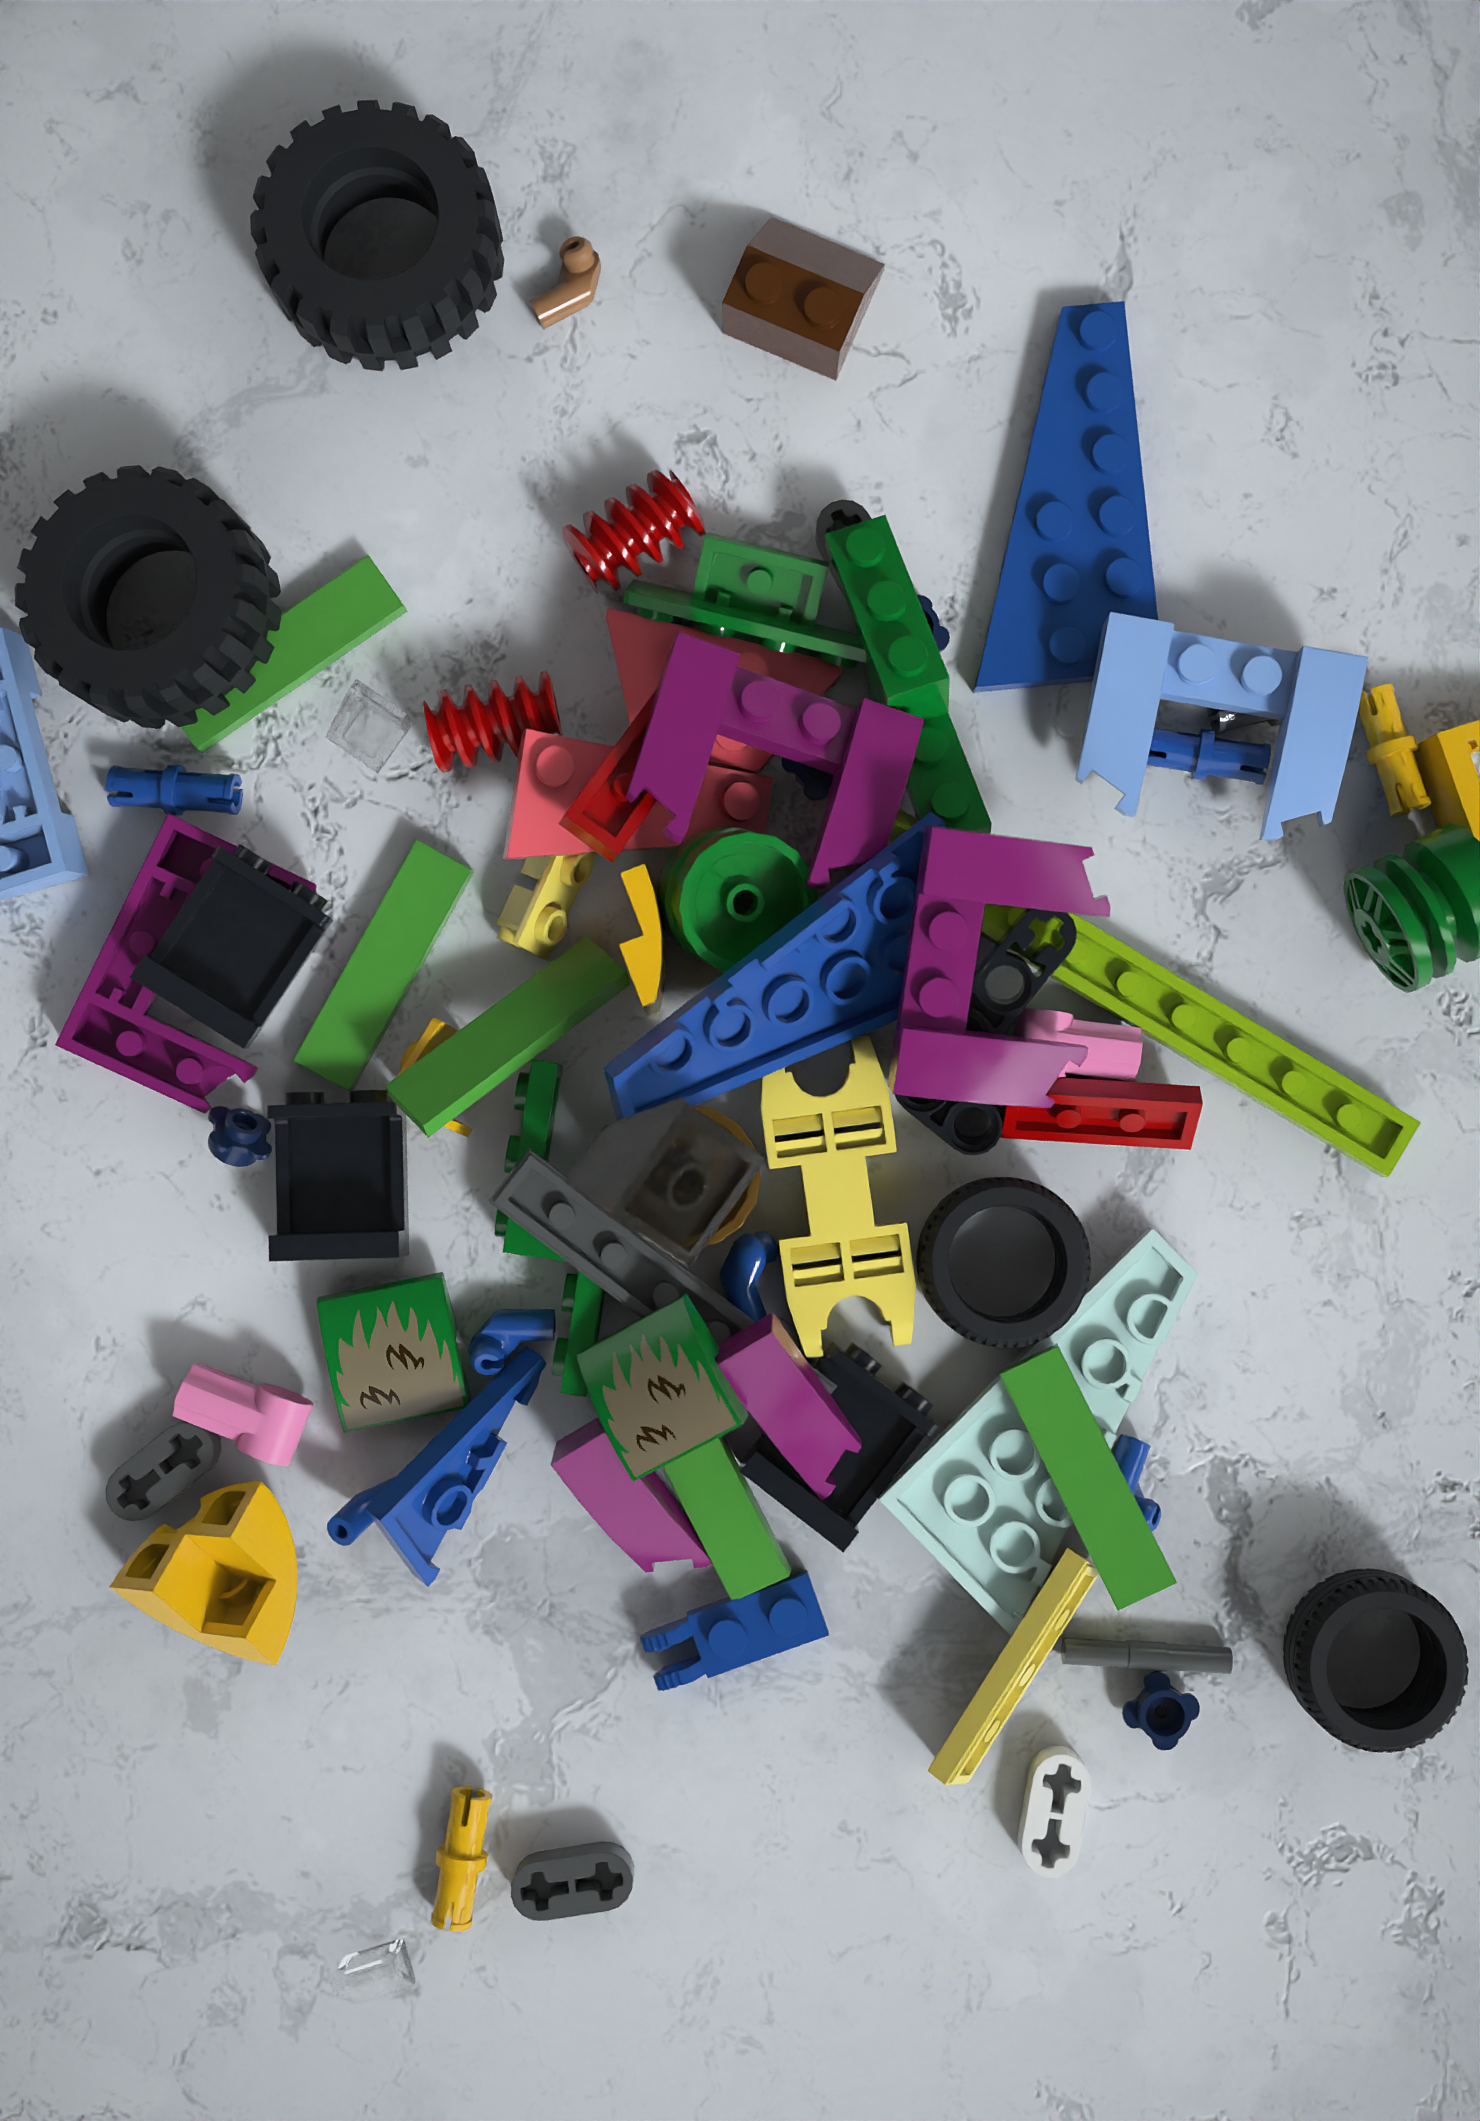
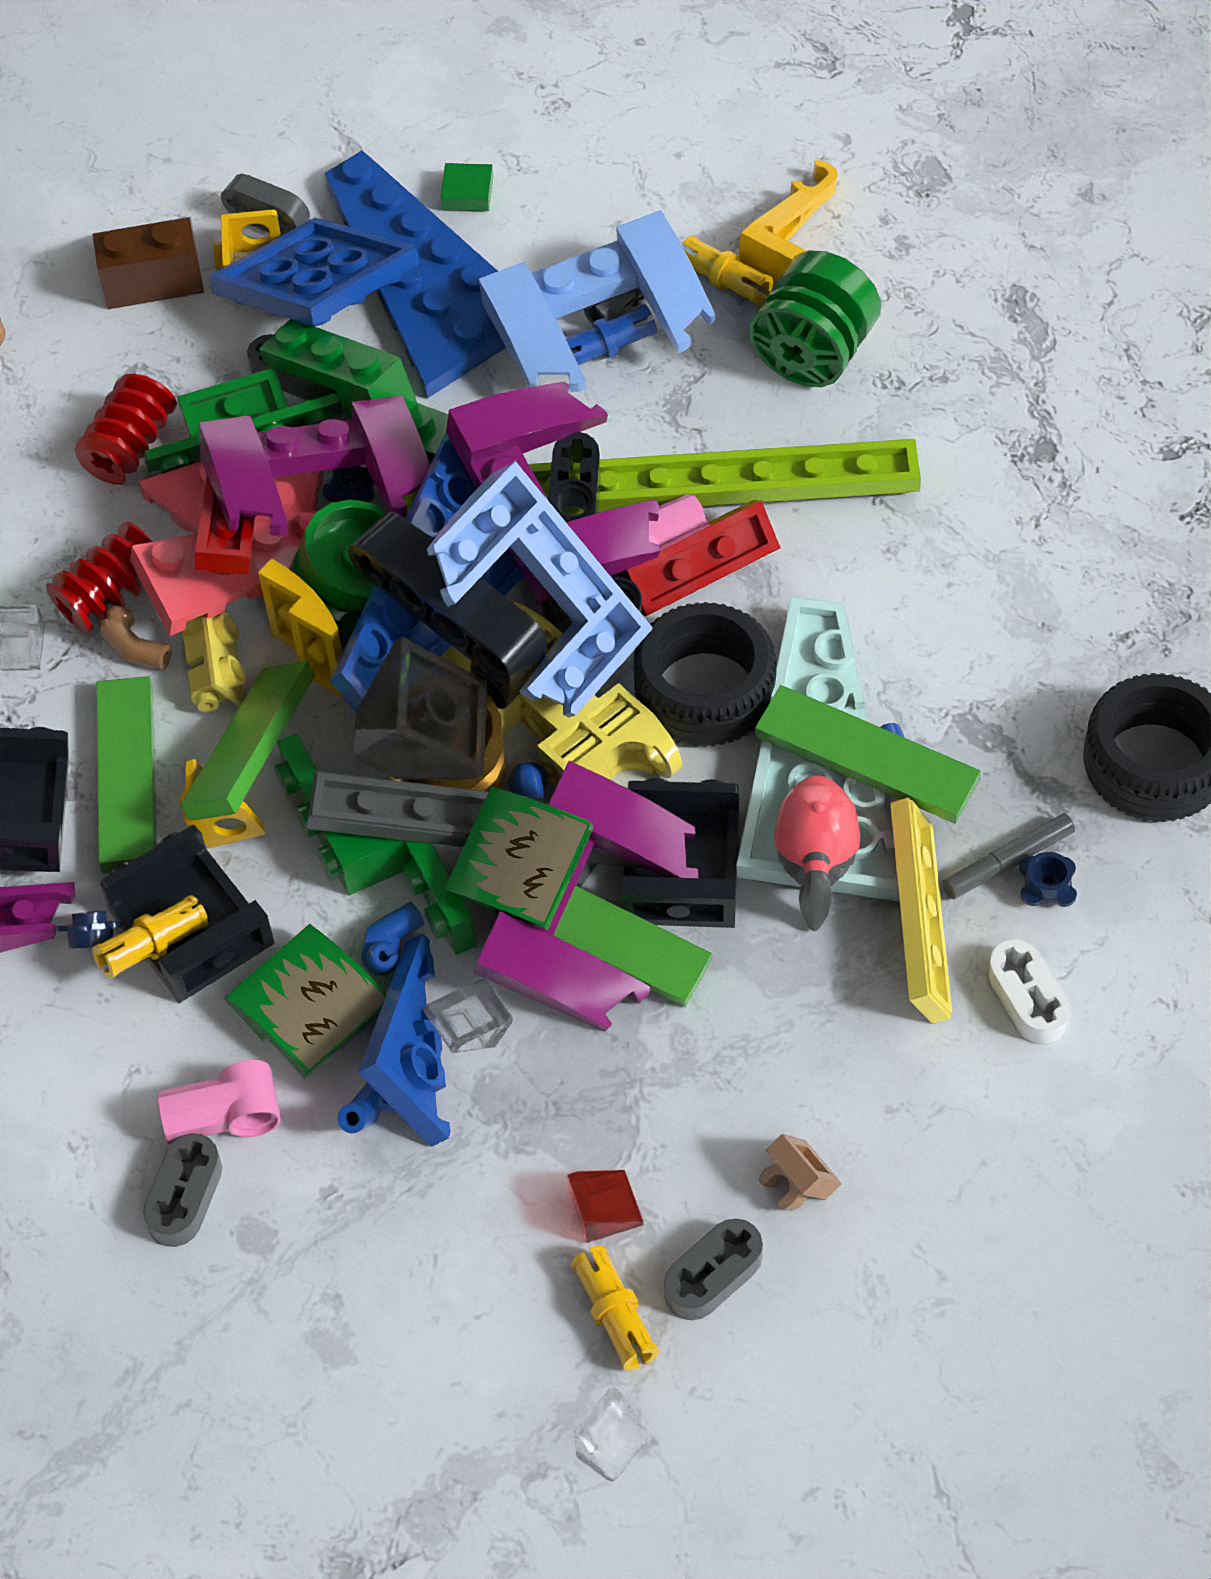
camera: 30 degrees left, 30 degrees down
(221, 1574) = (279, 1223): yellow brick -> none
(283, 1193) = (150, 937): none -> yellow pin
(478, 818) = (128, 645): none -> medium nougat arm
(521, 1483) = (470, 1017): none -> clear slope
(522, 1749) = (603, 1203): none -> clear red slope
(714, 1852) = (803, 1170): none -> medium nougat tile
(740, 1630) = (706, 1021): blue hinge -> none
(775, 1061) = (482, 625): none -> black beam
(896, 1034) = (605, 622): none -> light blue wedge
(908, 332) = (234, 241): none -> yellow bracket
(951, 463) = (314, 271): none -> blue plate
(968, 312) = (252, 194): none -> dark grey beam
(973, 1531) = (816, 842): none -> coral hair
(1203, 431) = (467, 187): none -> green tile

